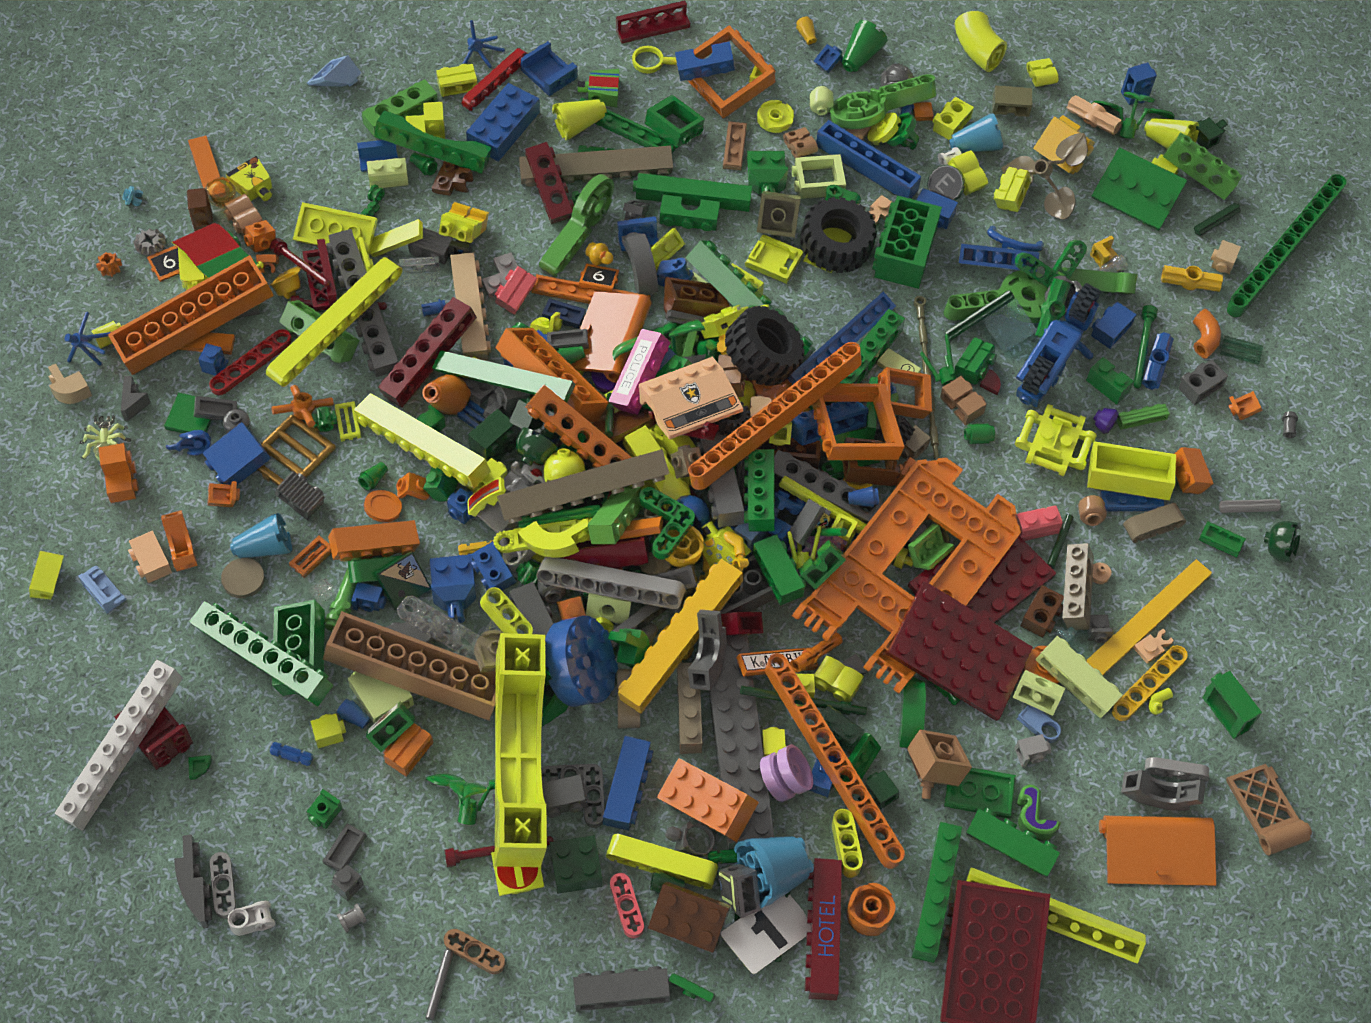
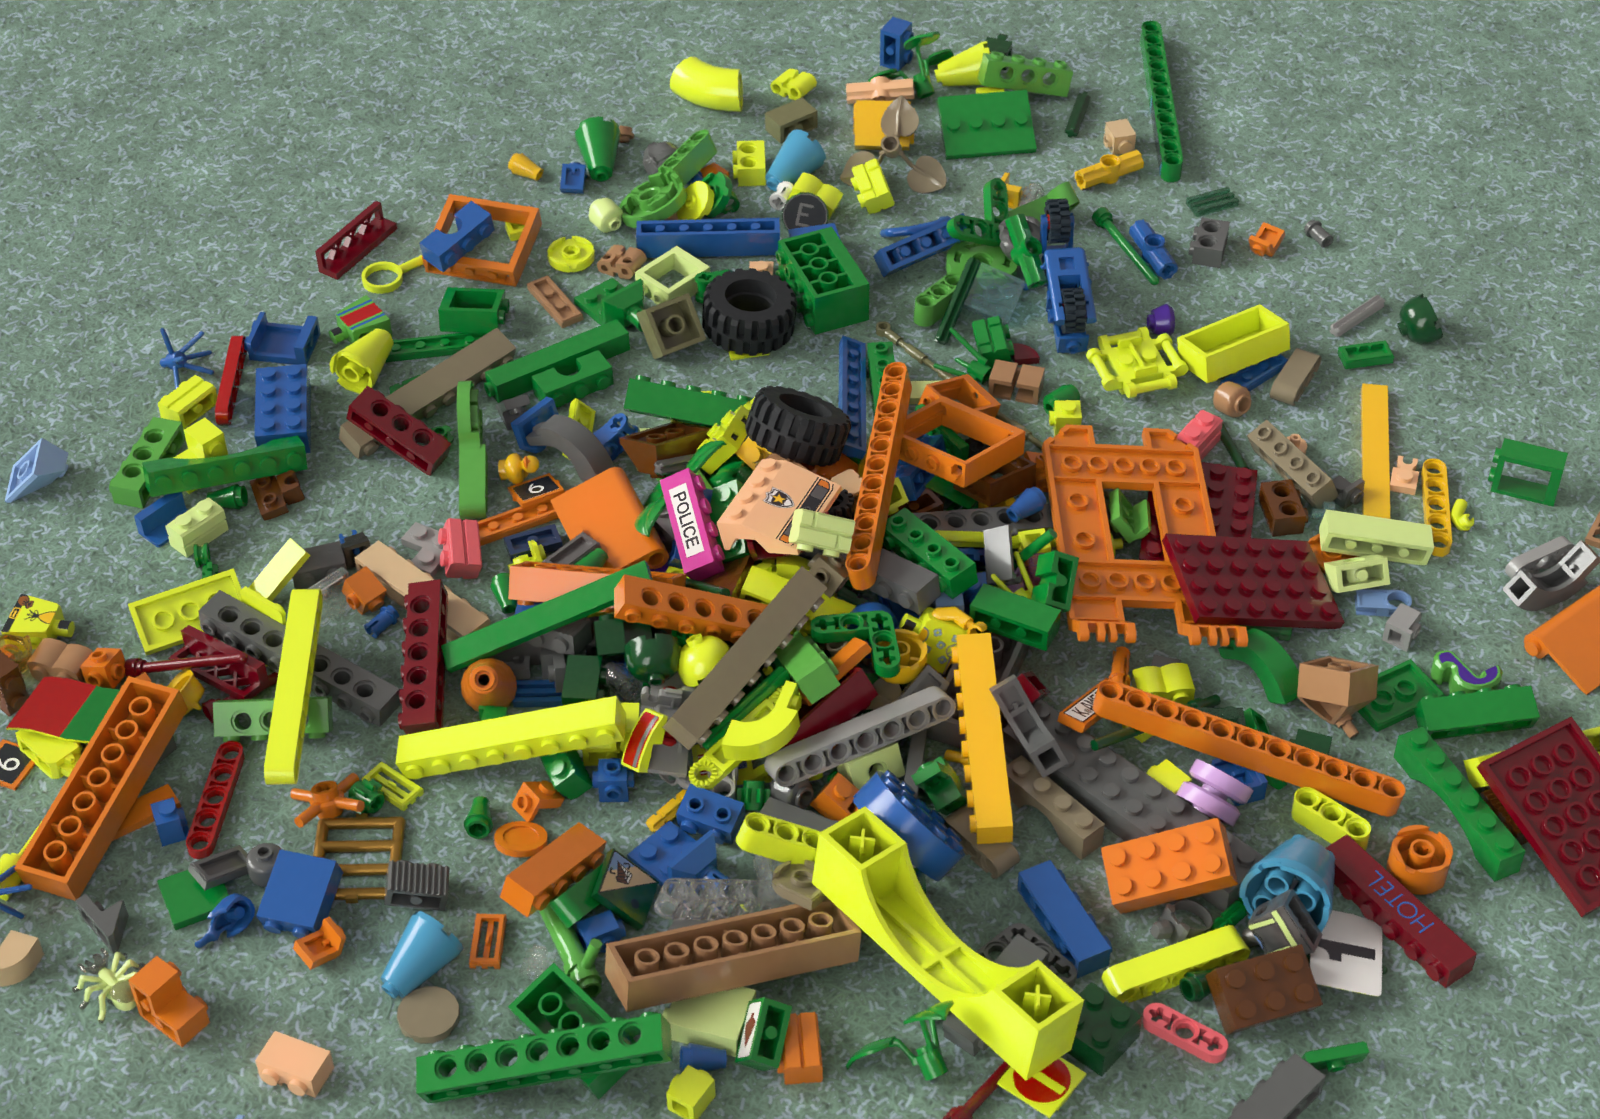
camera: 35 degrees left, 15 degrees down
(179, 540) = (315, 1025): orange arch -> none
(438, 282) = (364, 591): none -> orange brick
(463, 222) = (336, 526): neon yellow hips -> none
(690, 435) = (822, 532): none -> yellowish green brick
(772, 257) = (699, 370): neon yellow container -> none
(893, 43) = (626, 134): none -> medium nougat plate
(966, 450) = (1065, 413): none -> neon yellow brick
(1109, 382) = (1130, 288): green brick -> none
(1113, 324) = (1087, 238): blue brick -> none
(1142, 416) = (1190, 299): bright green piece -> none
(1192, 471) = (1290, 312): orange brick -> none
(1209, 331) = (1173, 202): orange cylinder -> none

